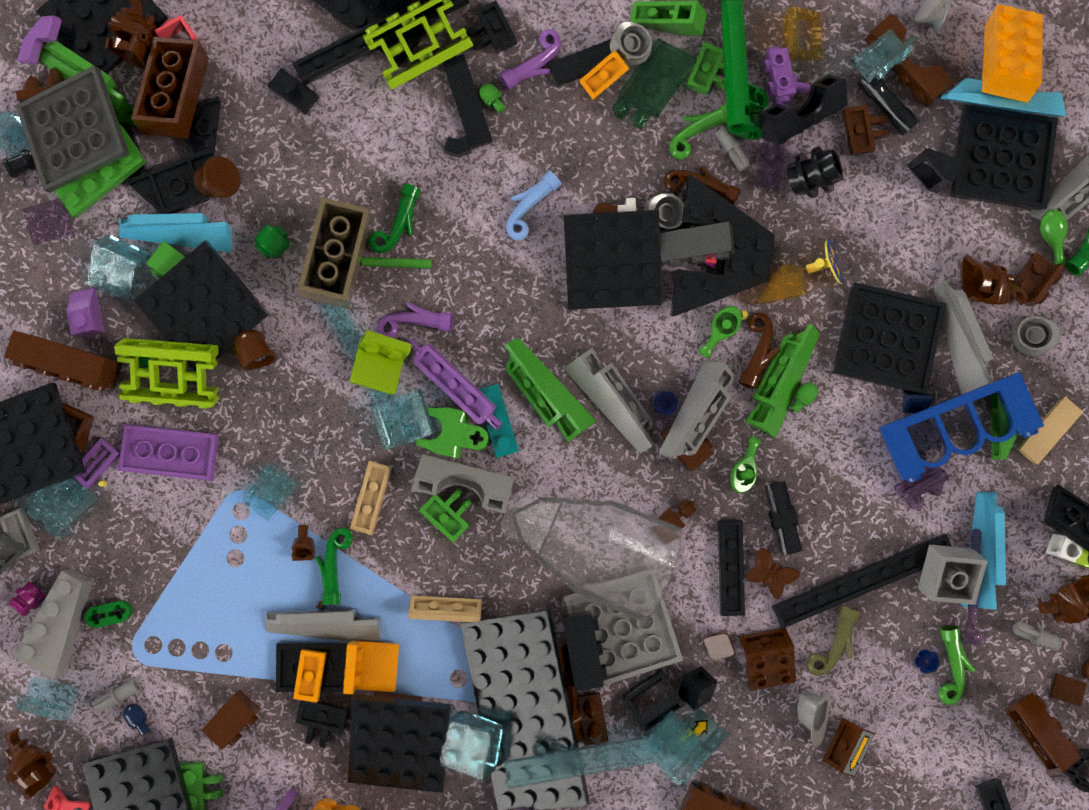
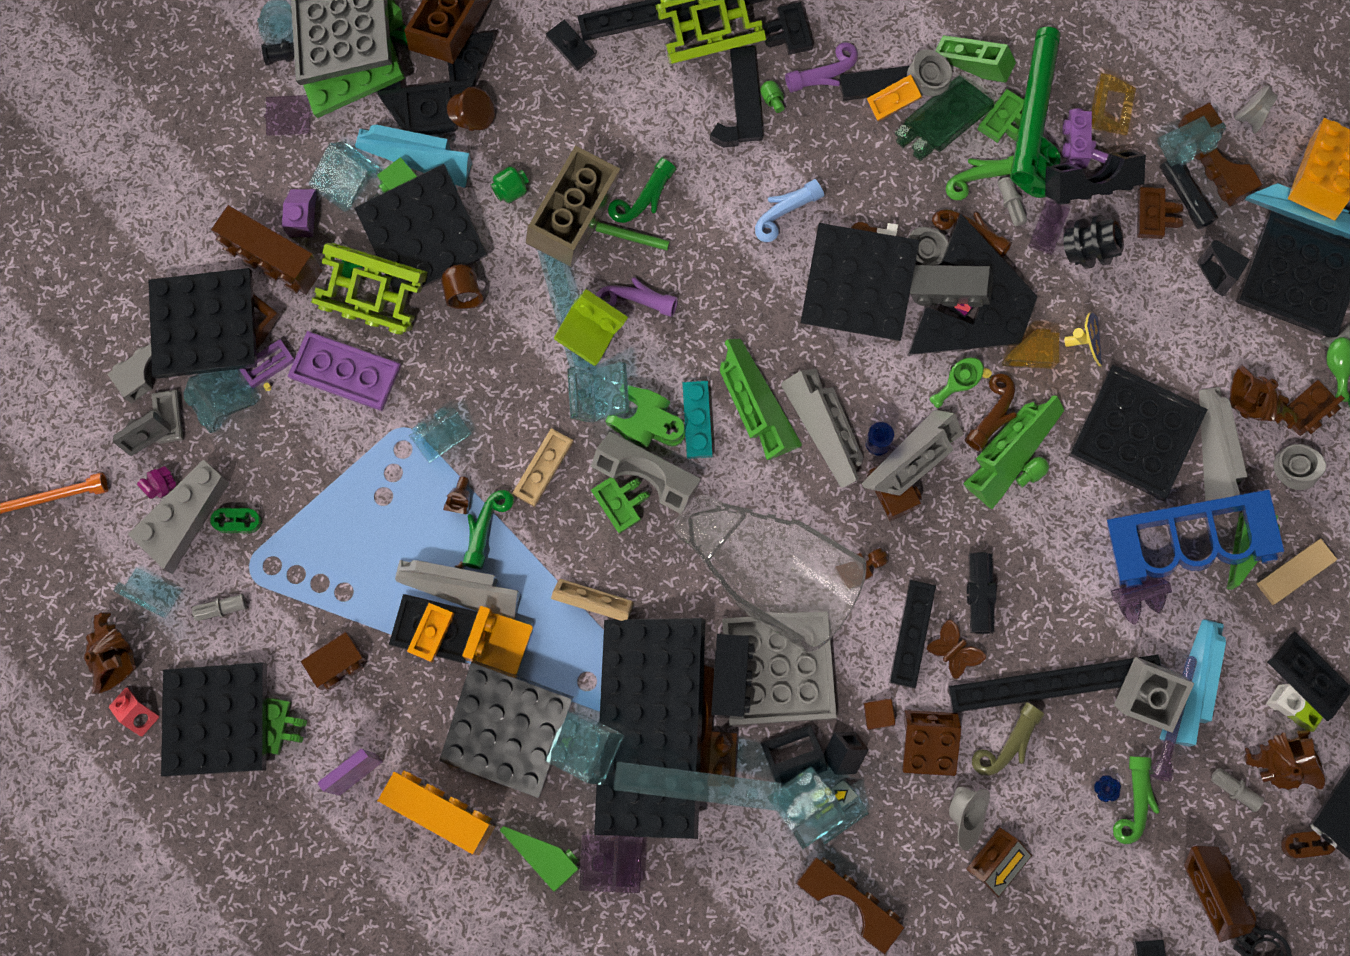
camera: 20 degrees right, 10 degrees down
(136, 718) = (233, 636): dark blue cylinder -> none
(321, 716) = (430, 682): black hinge -> none
(454, 384) = (662, 369): medium lavender plate -> none
(744, 471) = (950, 533): bright green piece -> none
(915, 402) = (1152, 503): dark blue slope -> none
(1068, 690) = (1260, 859): reddish brown slope -> none

